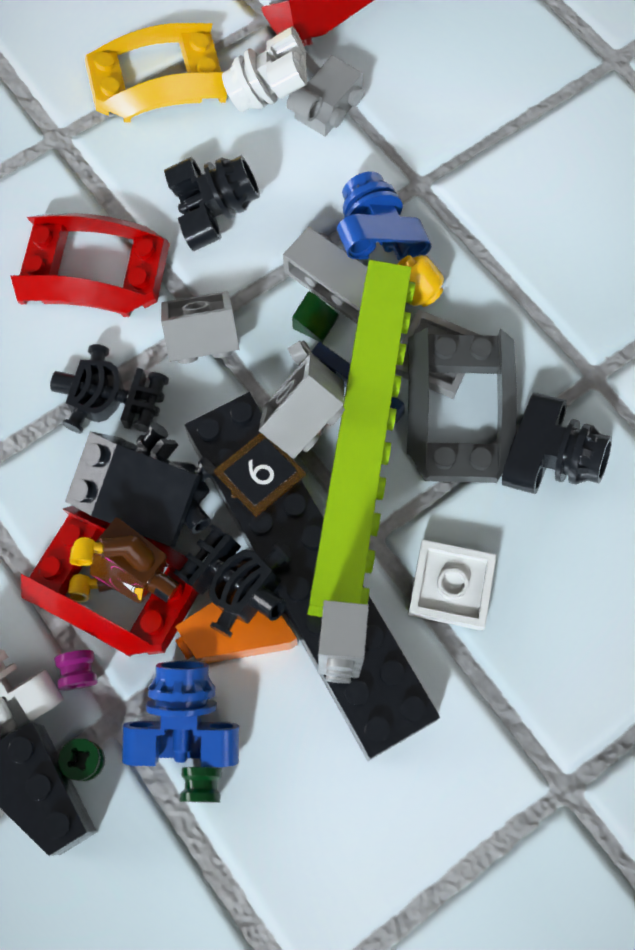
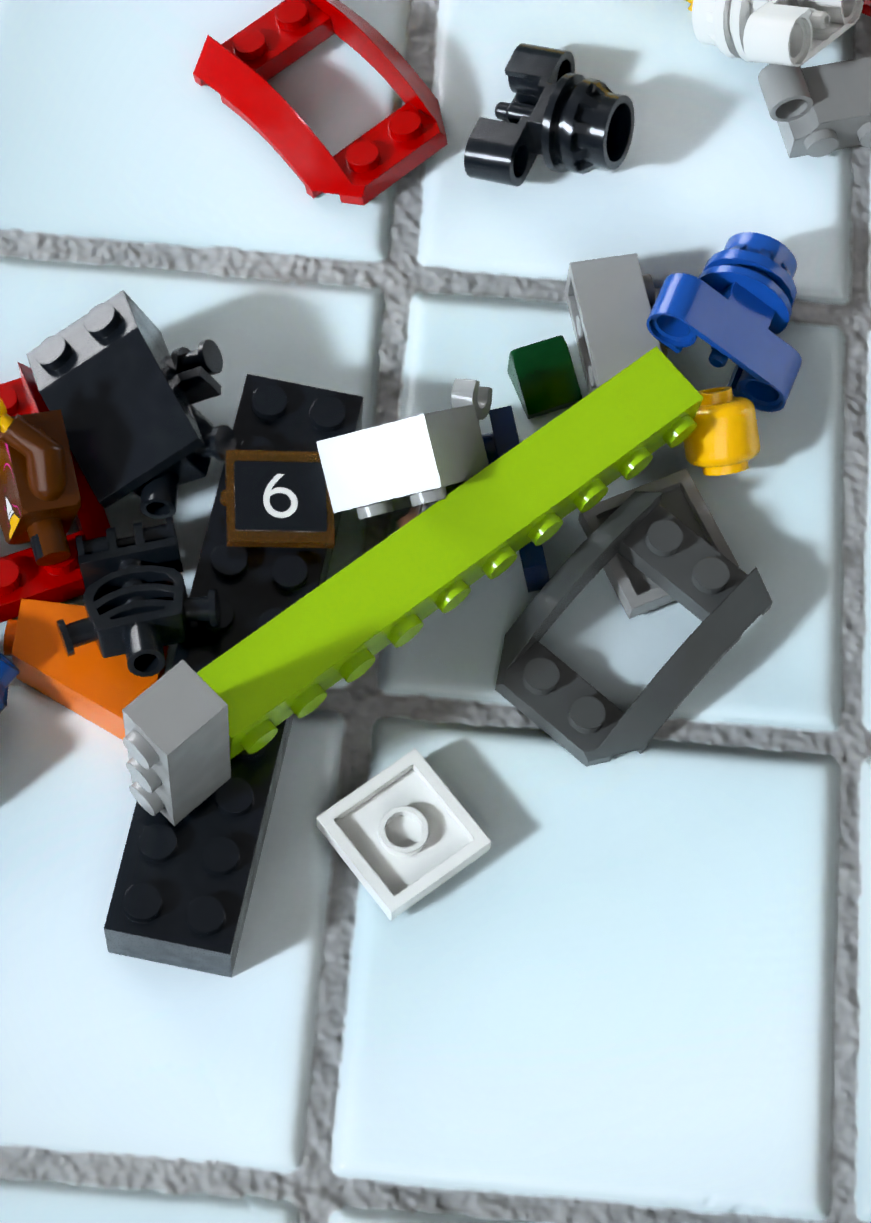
camera: 35 degrees right, 5 degrees down
(87, 397) = (178, 267): black piece -> none
(199, 327) = (383, 275): light grey slope -> none
(546, 444) = (696, 774): black beam -> none

